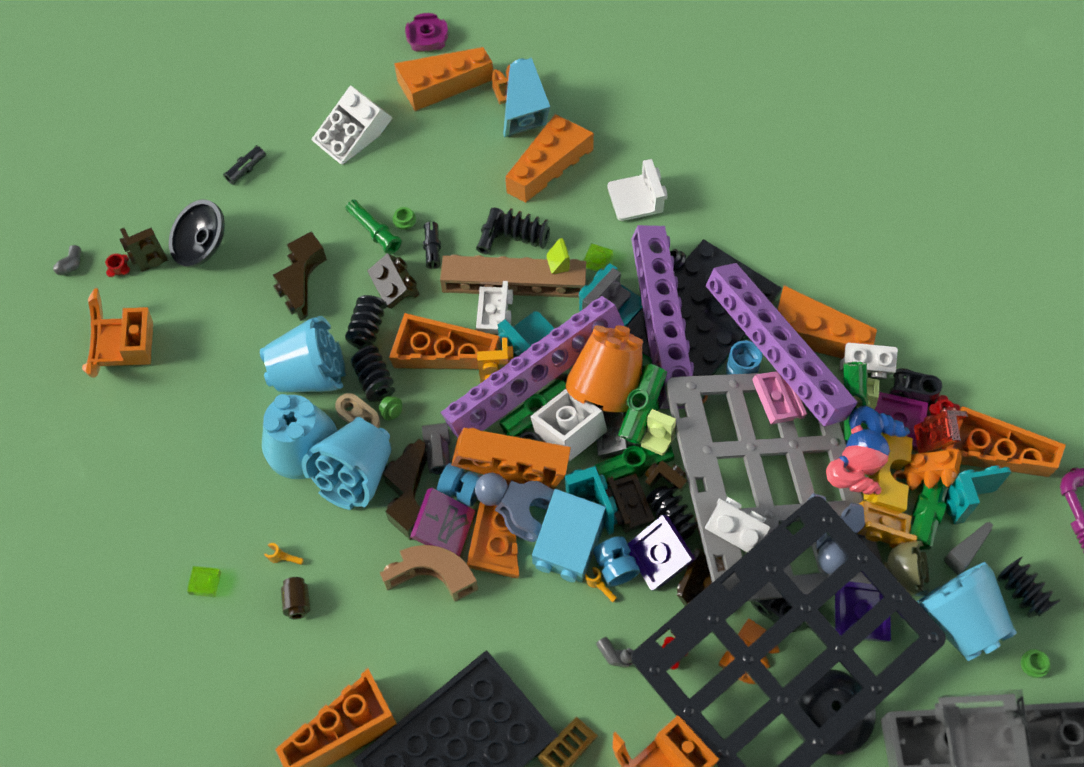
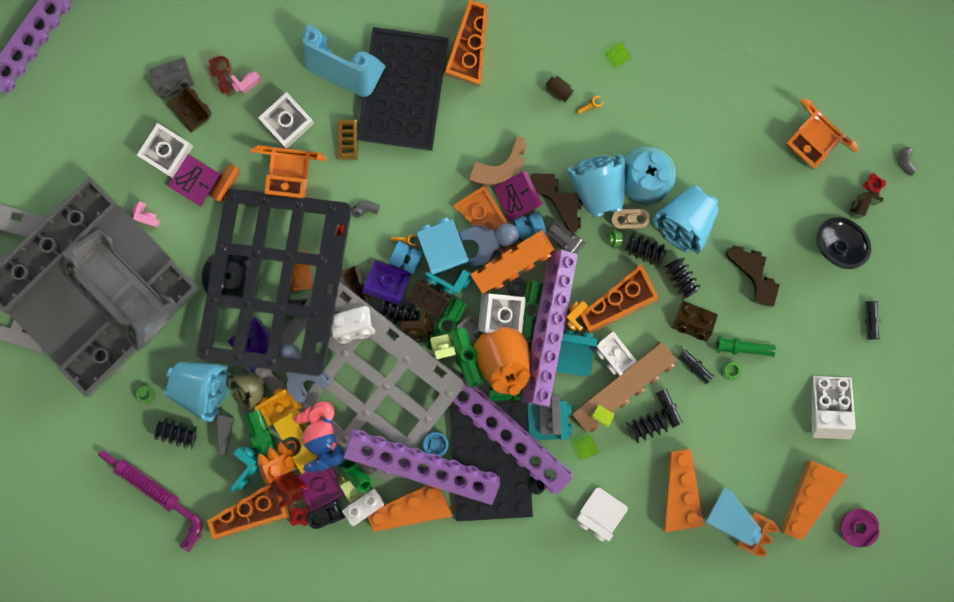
camera: 135 degrees right, 25 degrees up
(778, 398) = (395, 430): bright pink plate -> none

